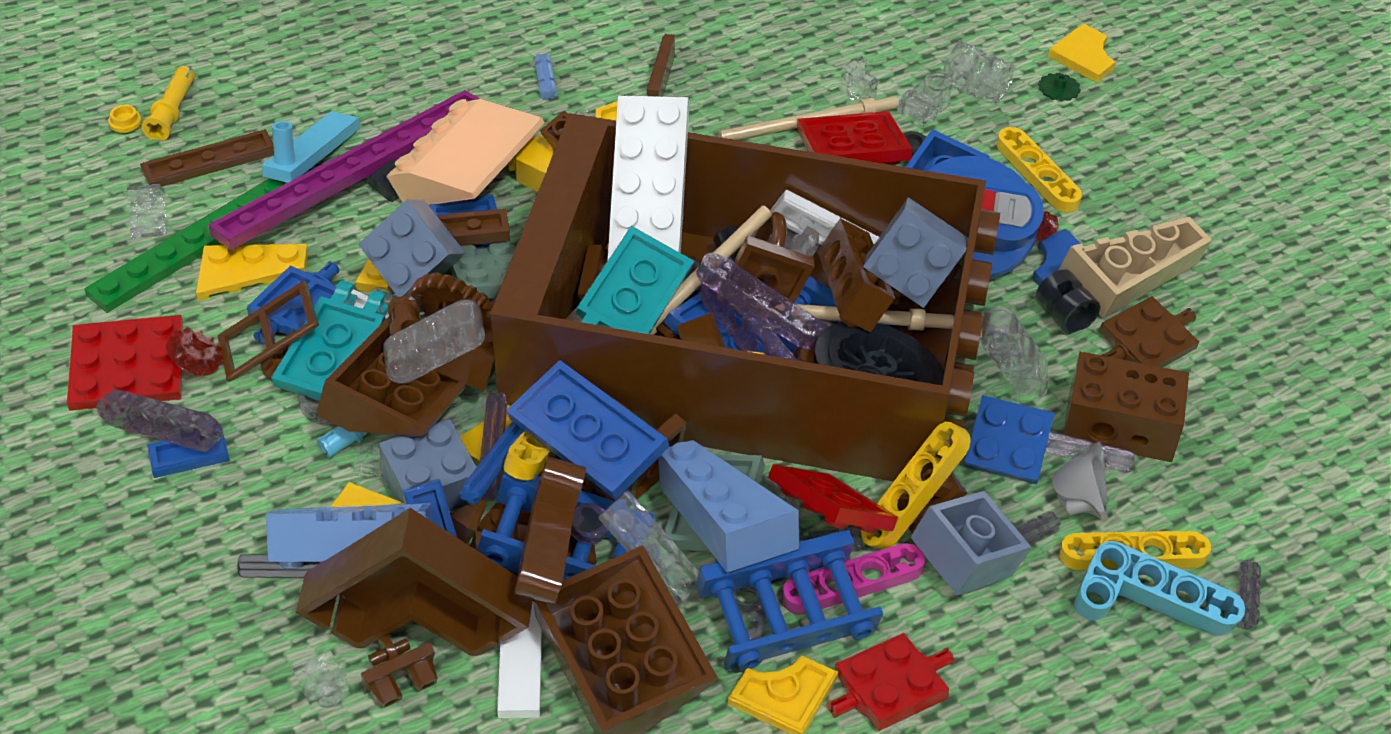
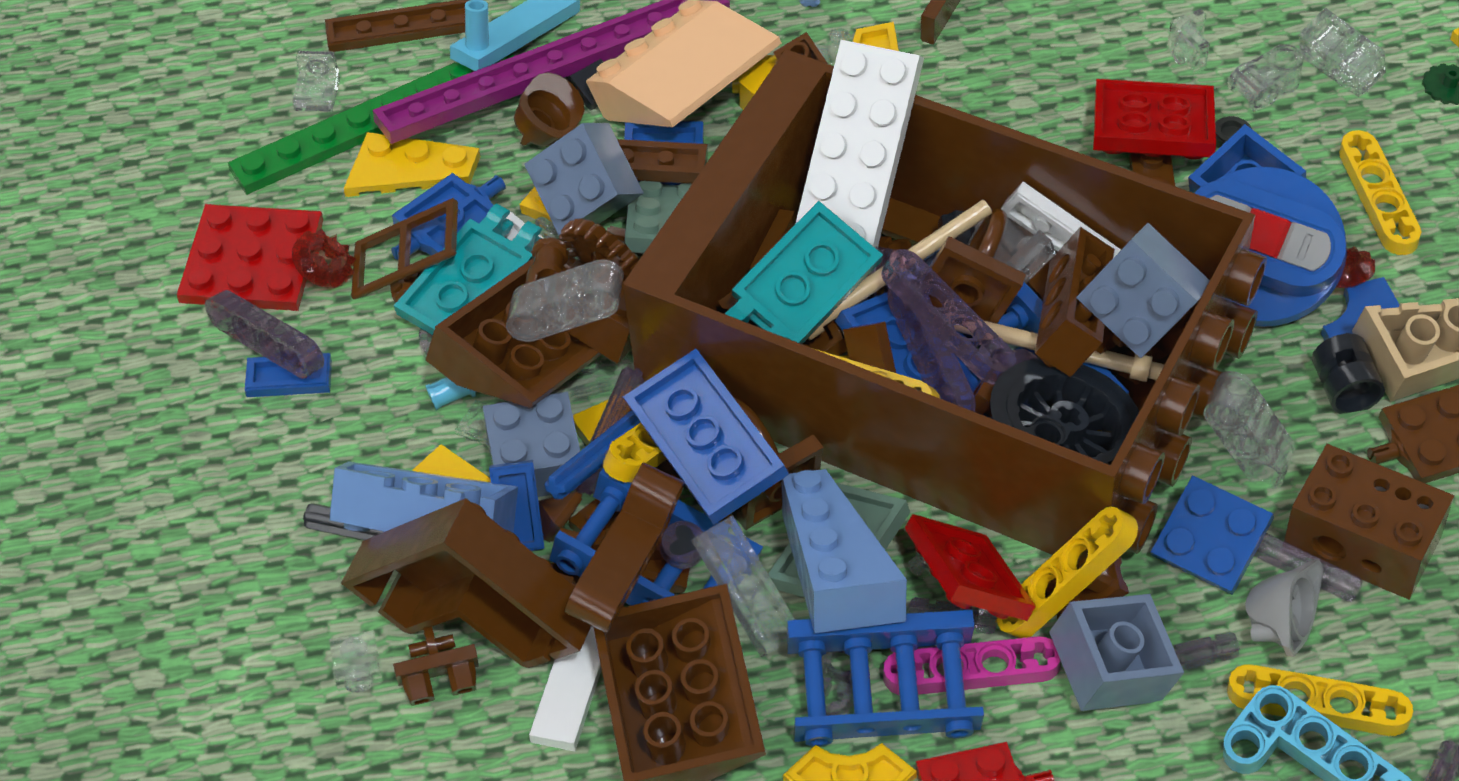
camera: 20 degrees right, 5 degrees up
(359, 205) = (548, 110): none -> reddish brown piece
(864, 106) = (1187, 75): tan bar -> none

